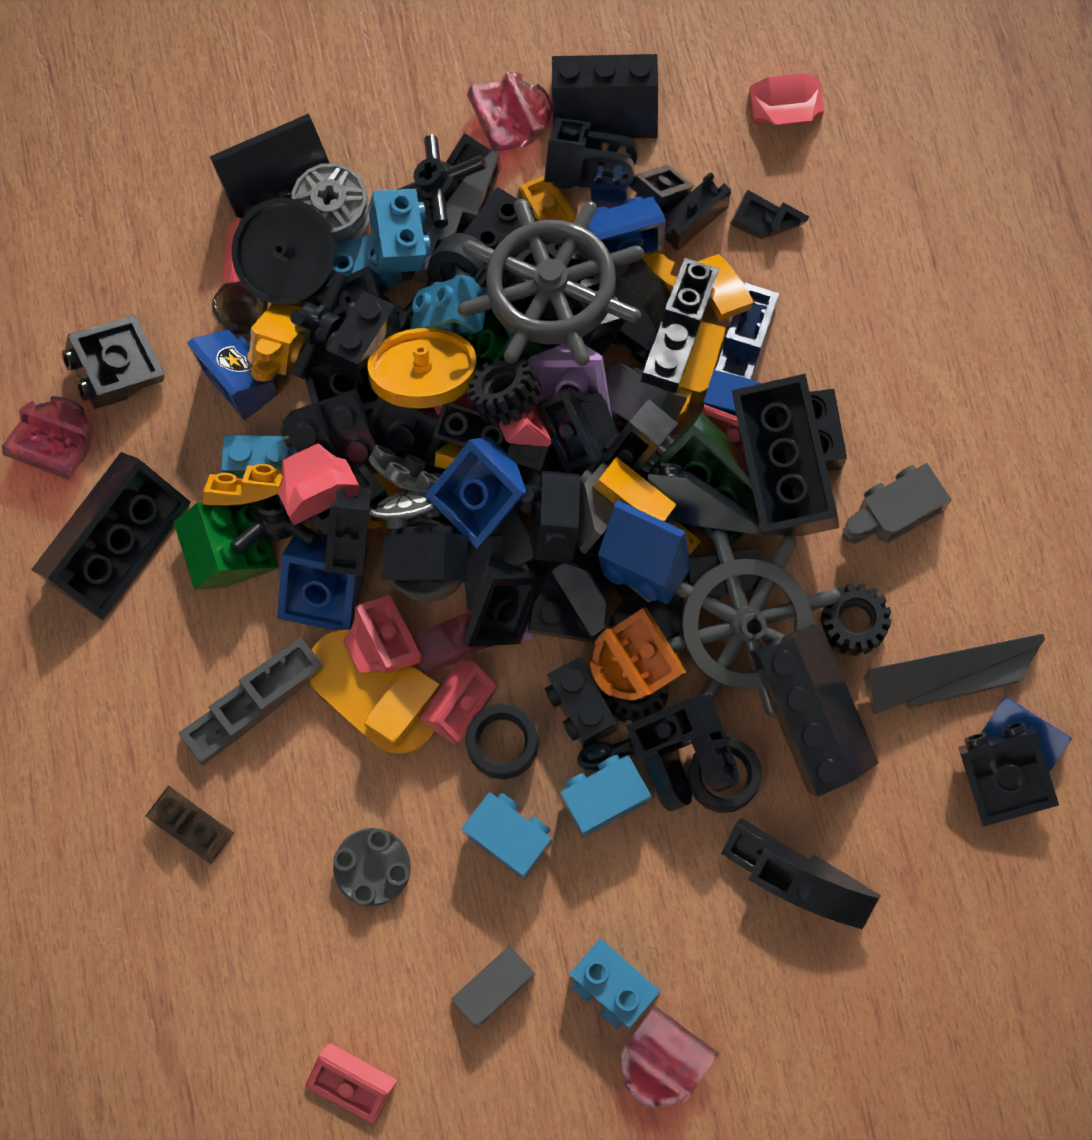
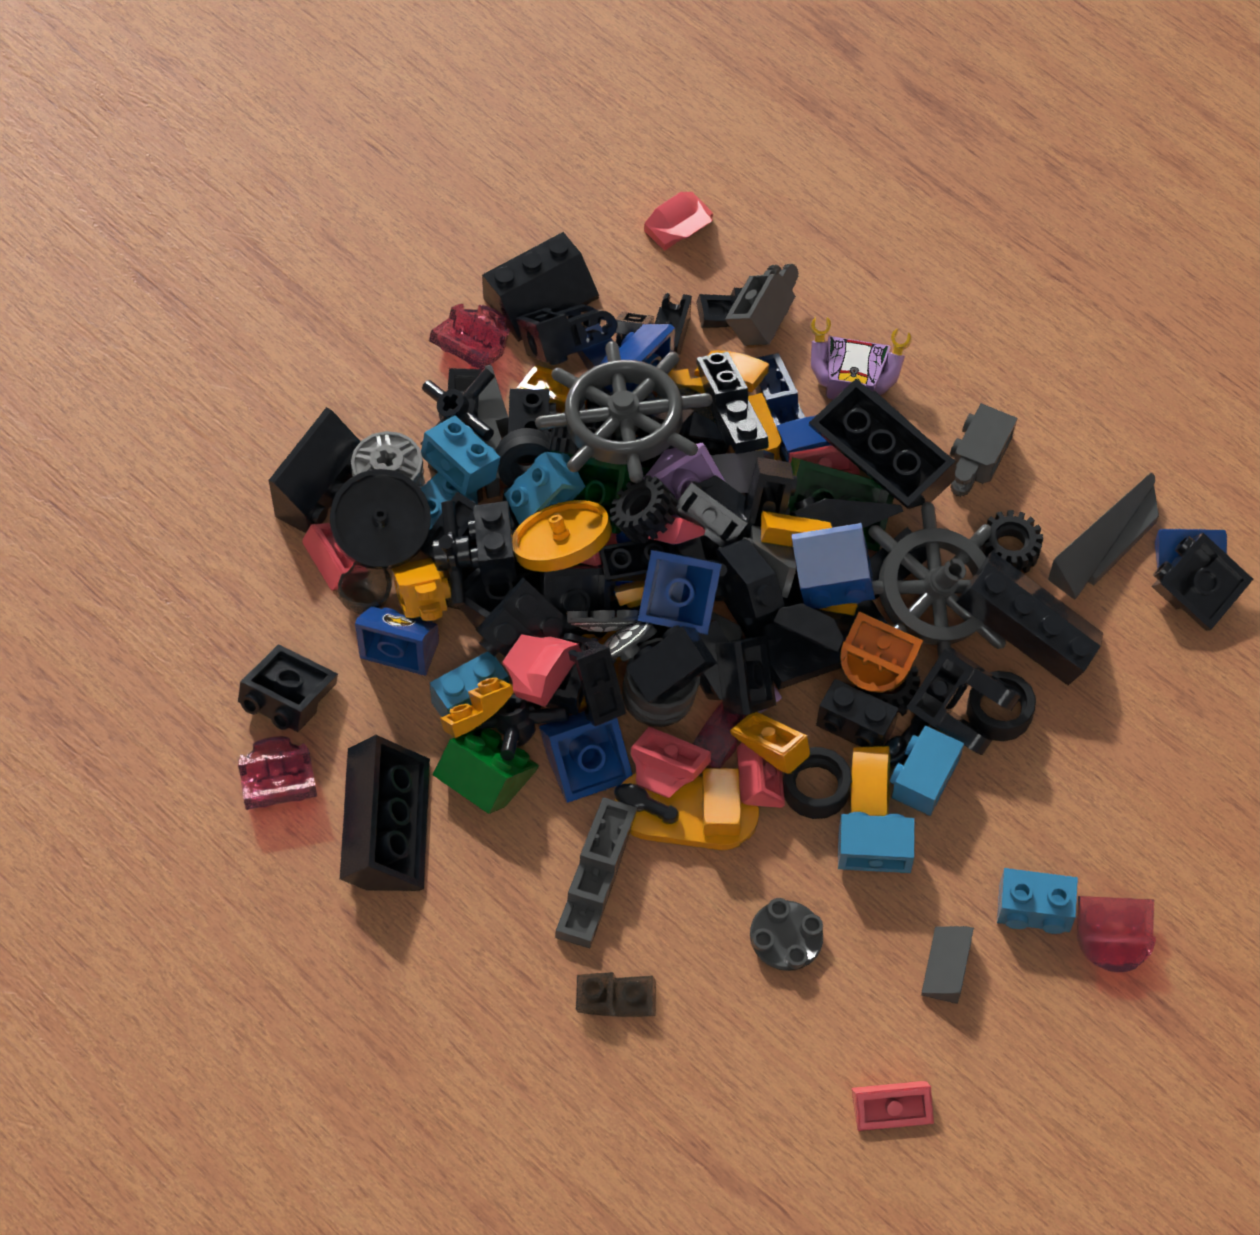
camera: 40 degrees left, 15 degrees down
(332, 656) = (638, 797): none -> black piece
(482, 682) = (773, 741): none -> light orange slope
(544, 775) = (870, 780): none -> light orange slope
(797, 235) = (763, 305): none -> dark grey hinge
(800, 880) = (1111, 739): black slope -> none
(837, 352) = (844, 360): none -> torso

